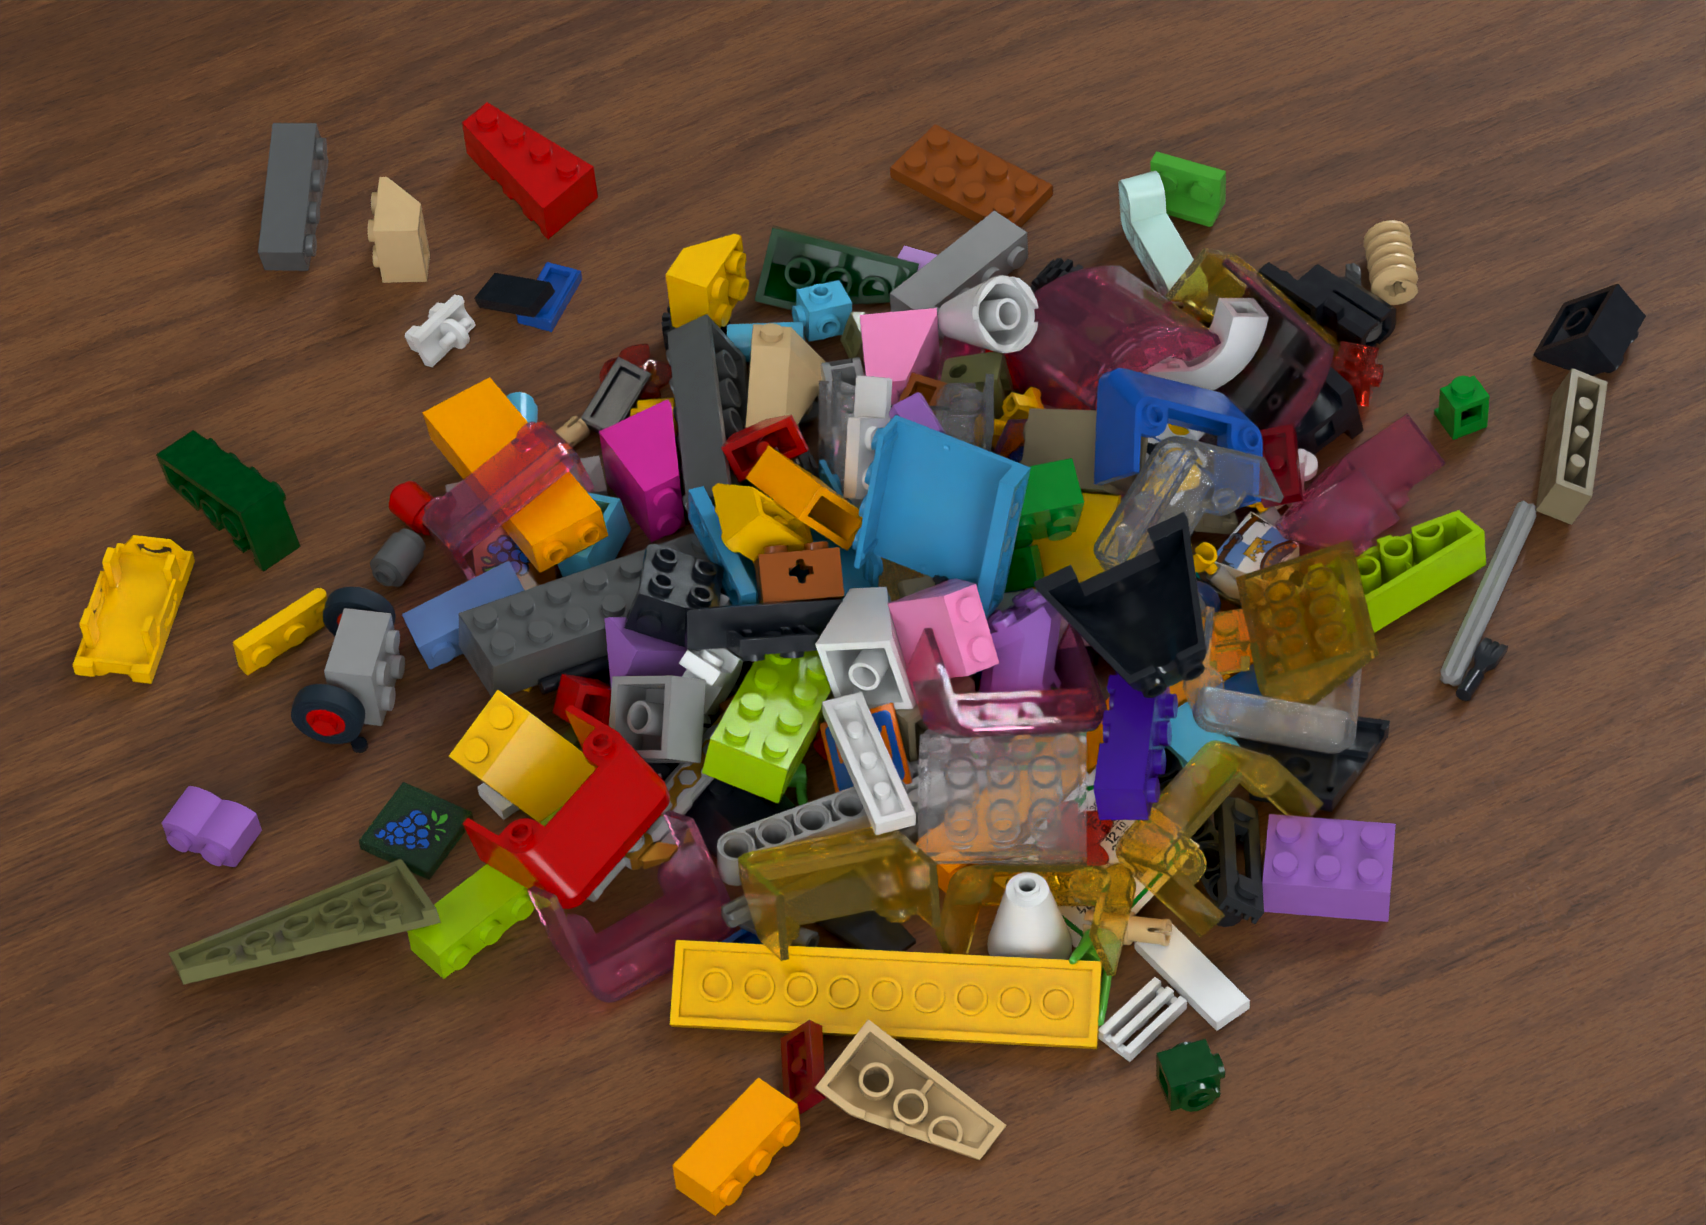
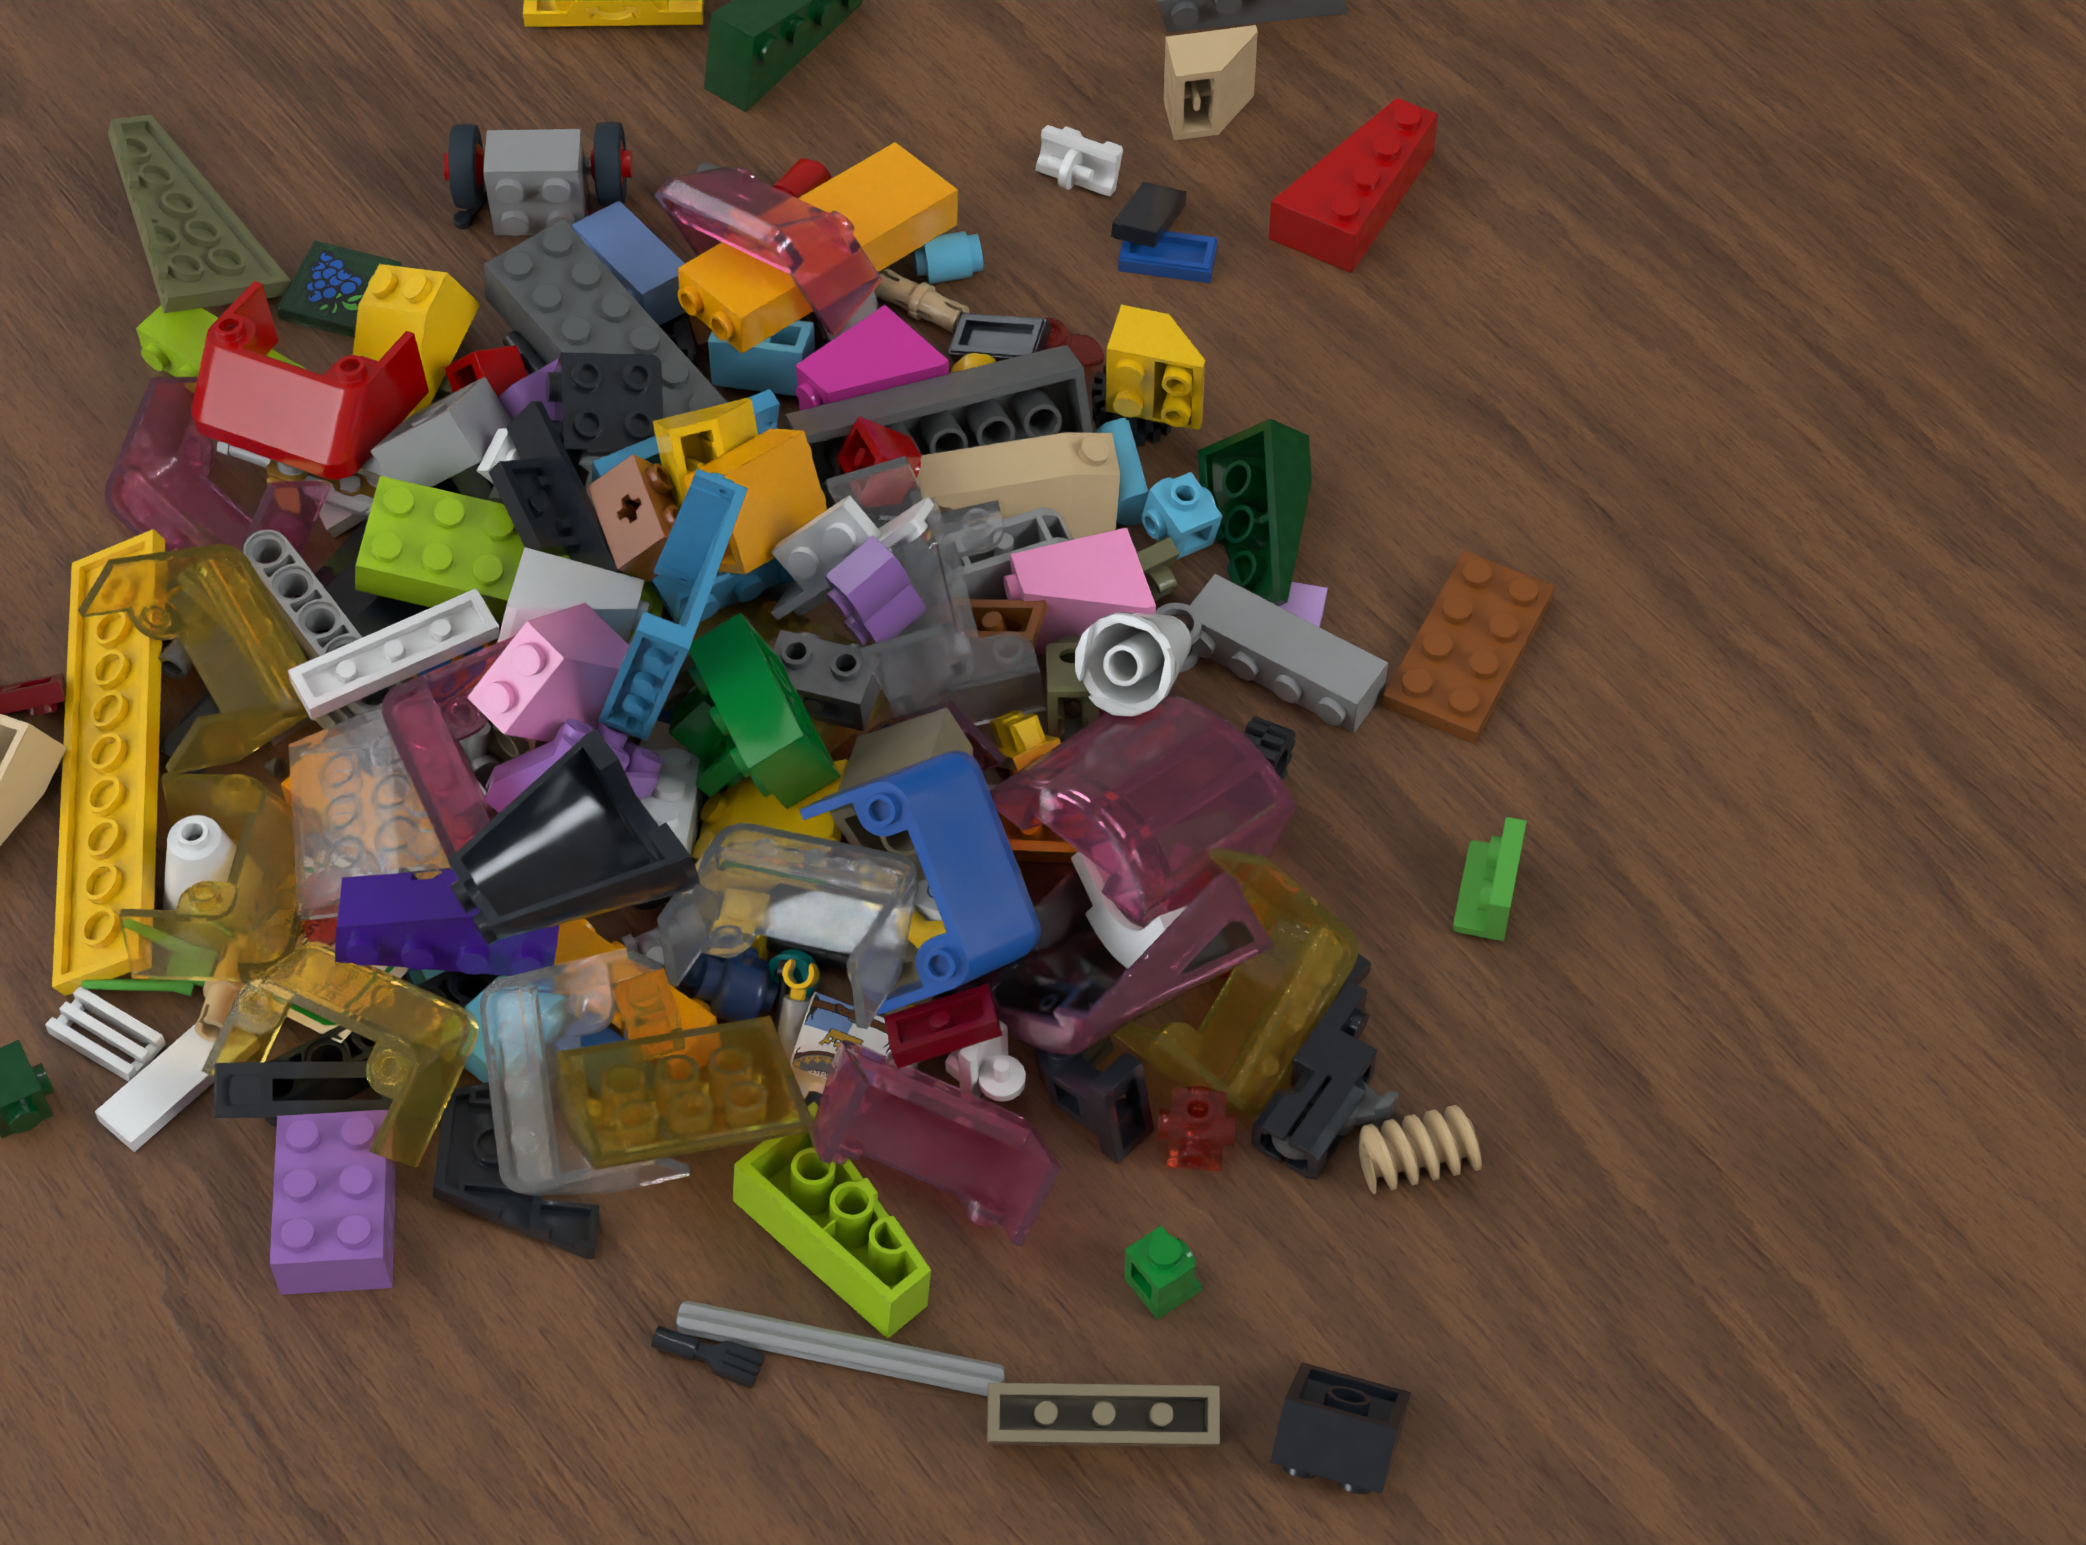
camera: 75 degrees right, 5 degrees up
(211, 827) = (320, 112): medium lavender brick -> none
(280, 632) = (589, 105): yellow hinge -> none
(1151, 231) = (1395, 859): light aqua beam -> none

